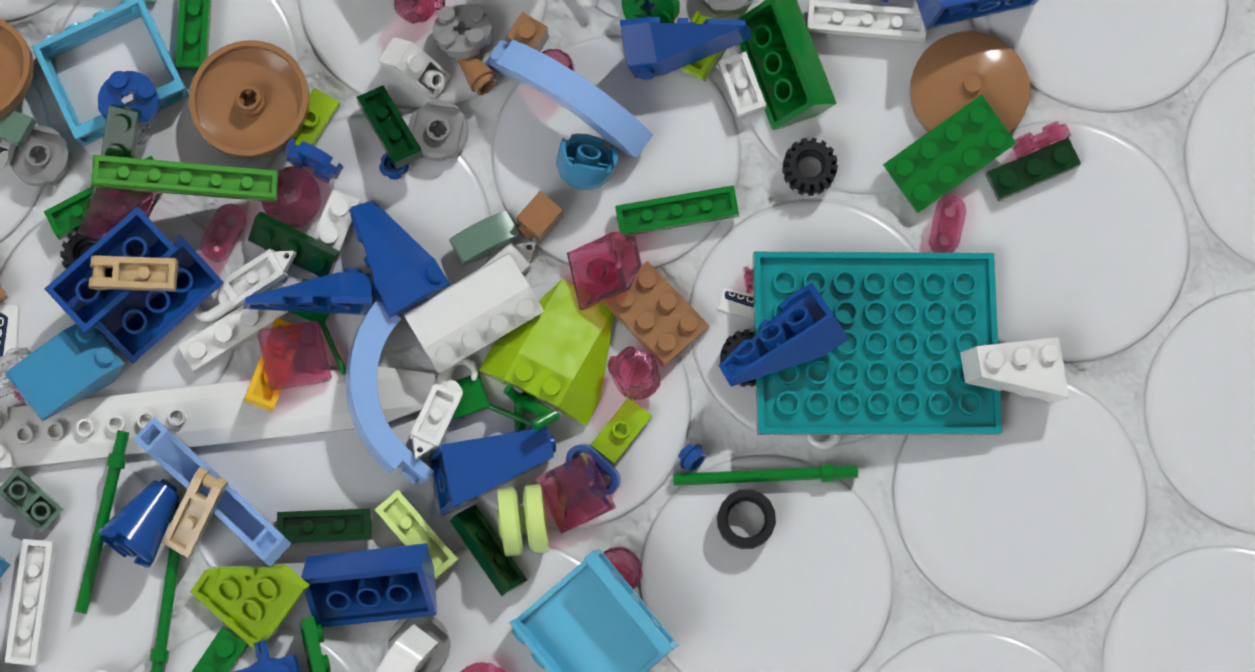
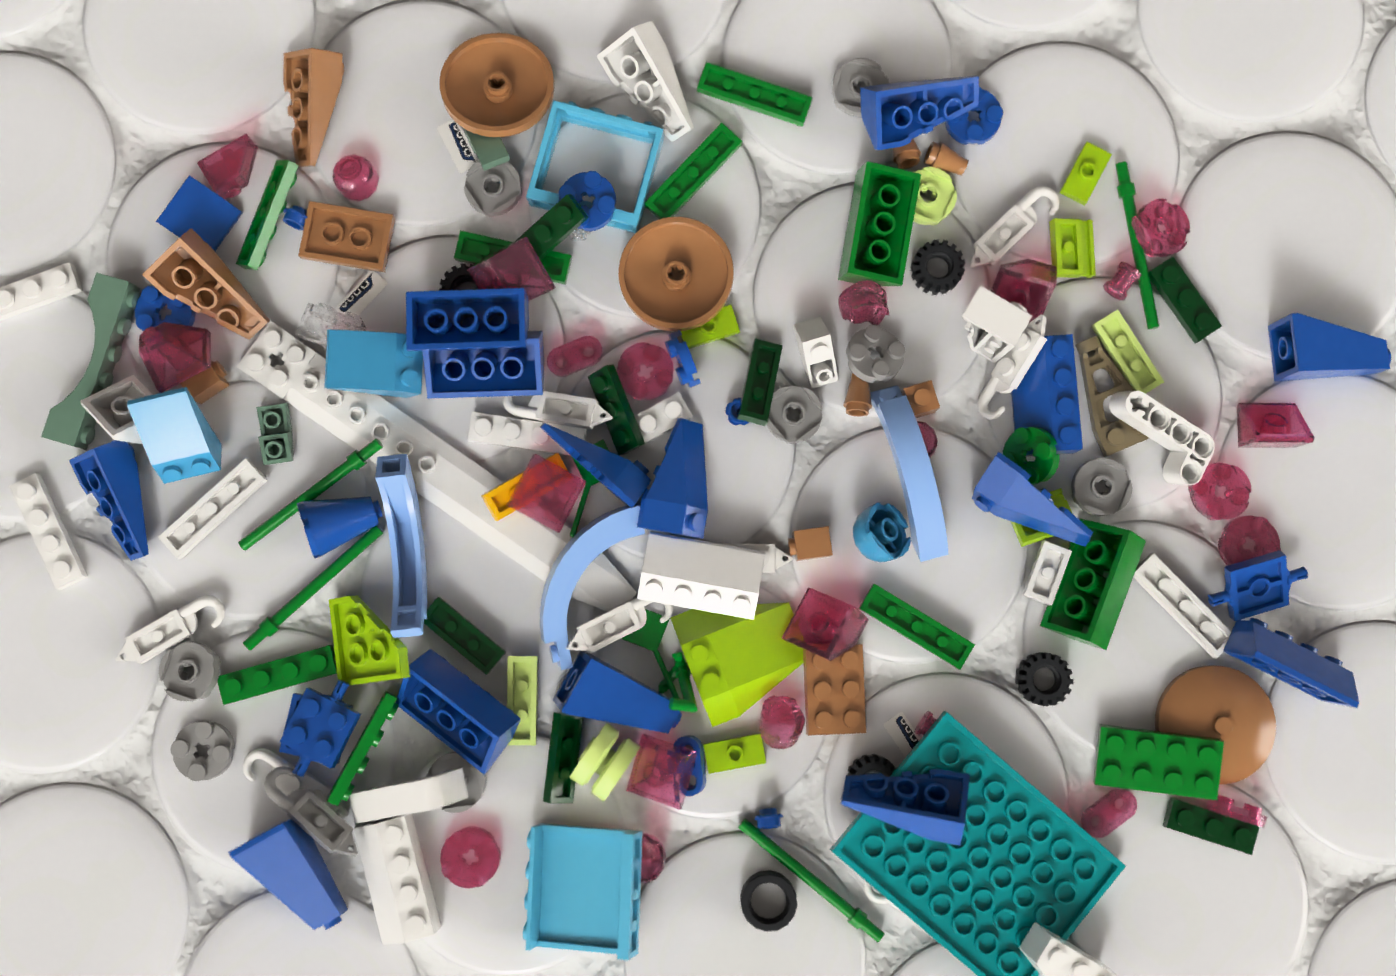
camera: 40 degrees right, 5 degrees up
(134, 273) = (477, 338): tan plate -> none
(184, 178) = (576, 294): bright green tile -> none
(194, 512) = (376, 548): tan plate -> none
(484, 236) = (758, 523): sand green slope -> none

